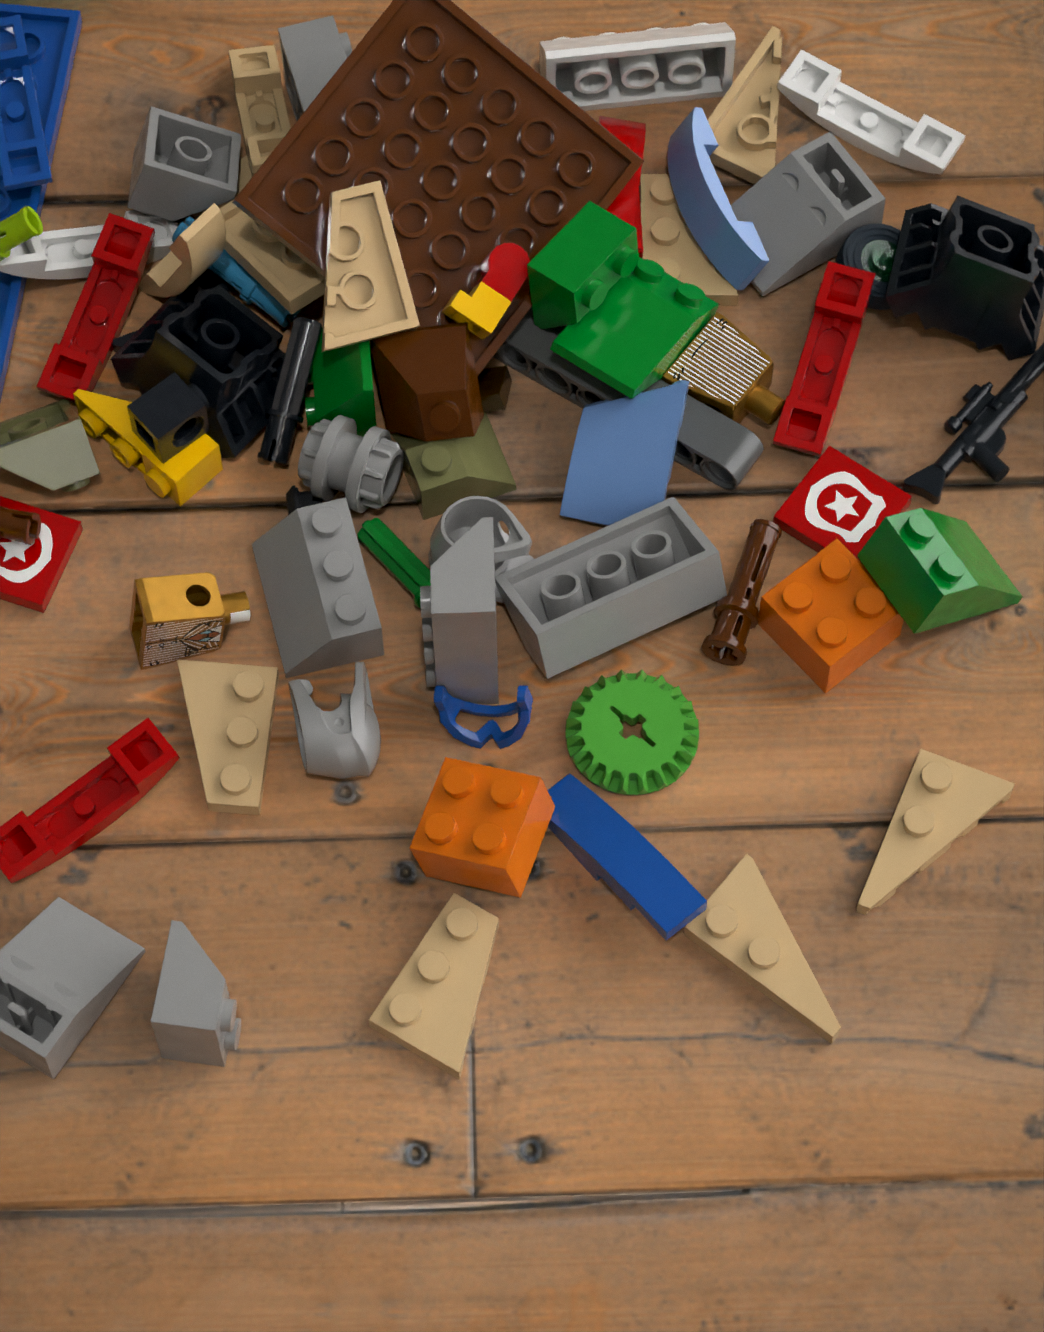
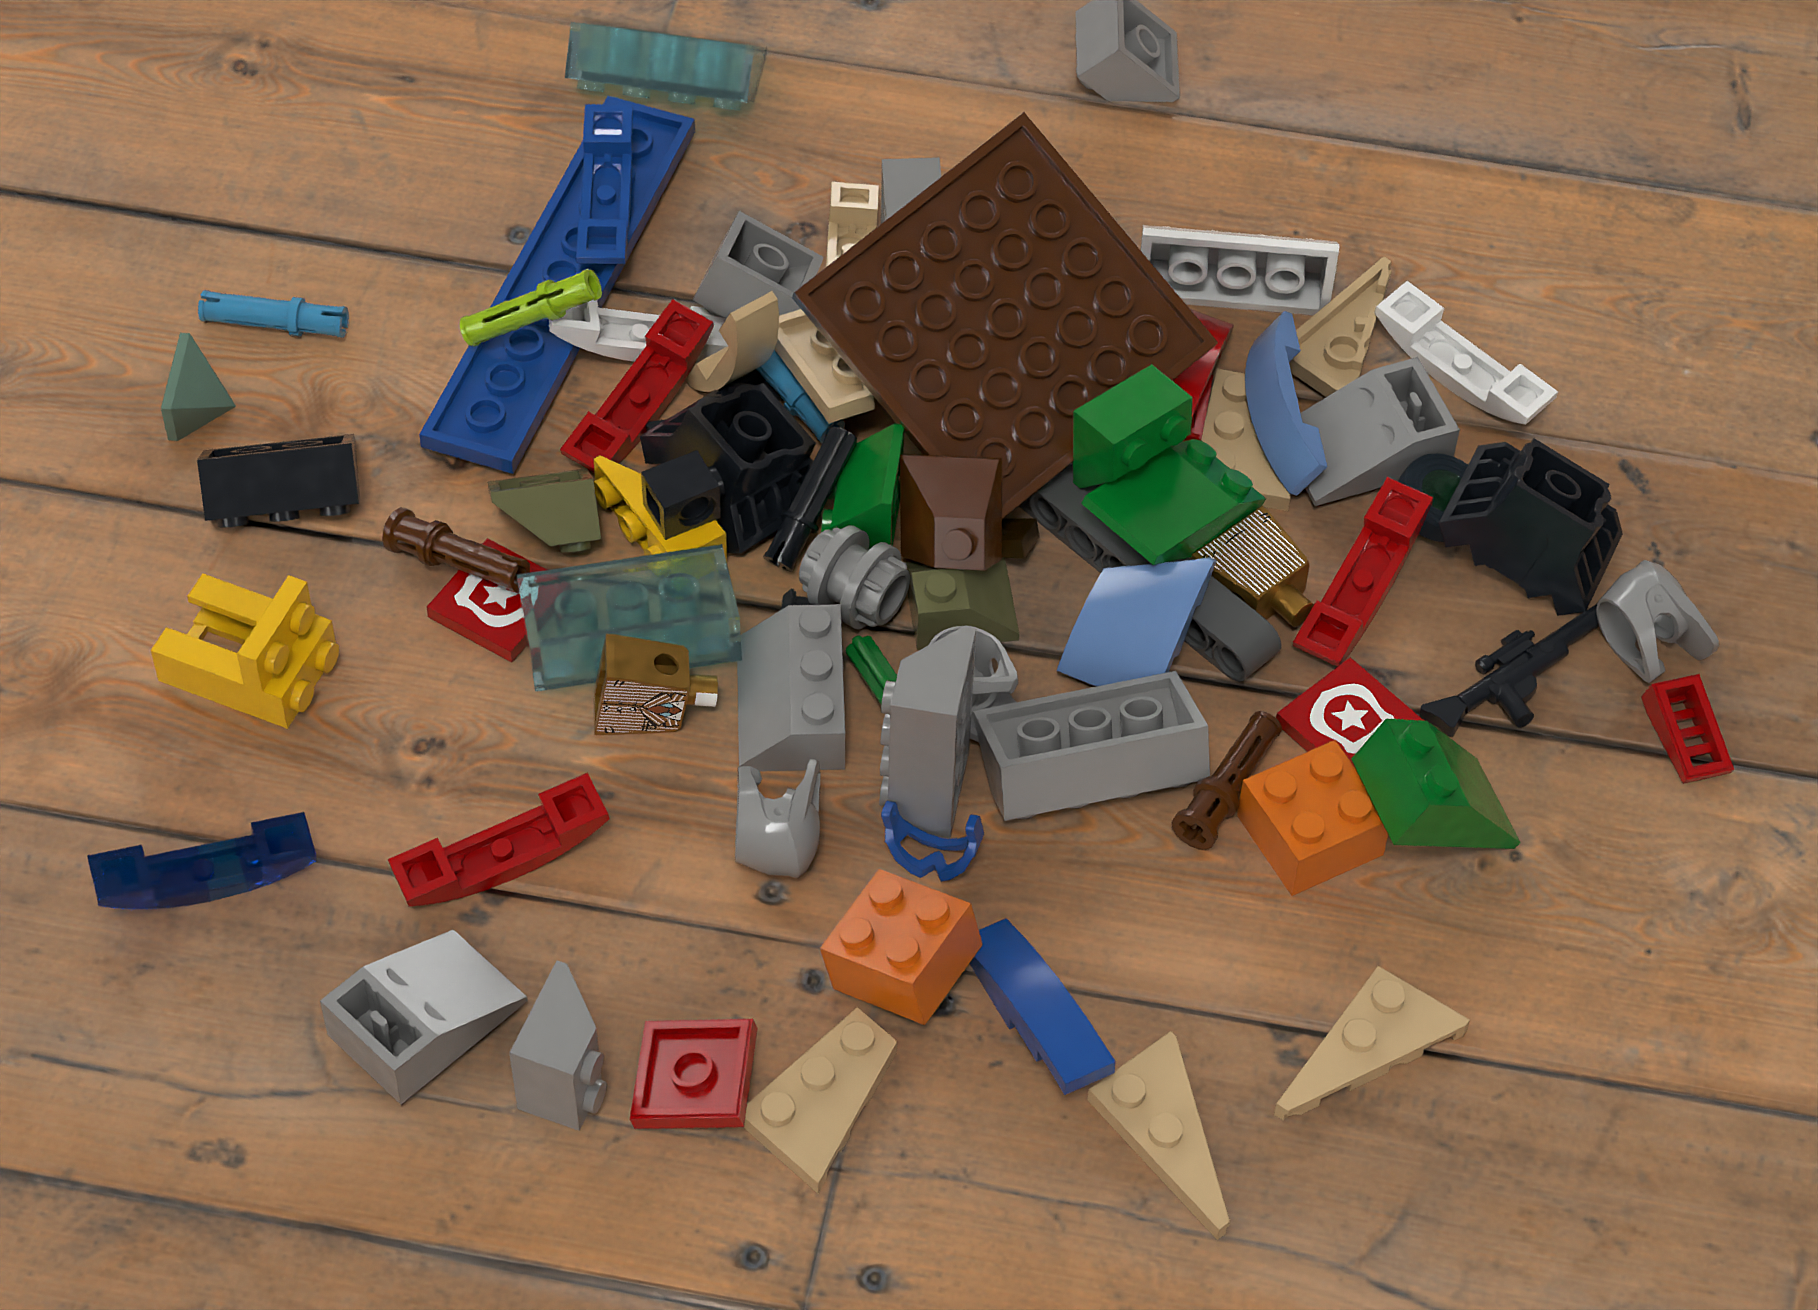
camera: 10 degrees right, 10 degrees down
(156, 531) = (654, 597): none -> clear light blue slope
(231, 729) = (670, 808): tan wing -> none
(319, 991) = (693, 1074): none -> red tile
(364, 273) = (908, 388): tan wing -> none
(500, 280) = (1042, 428): leg -> none
(632, 763) = (1071, 921): bright green gear -> none

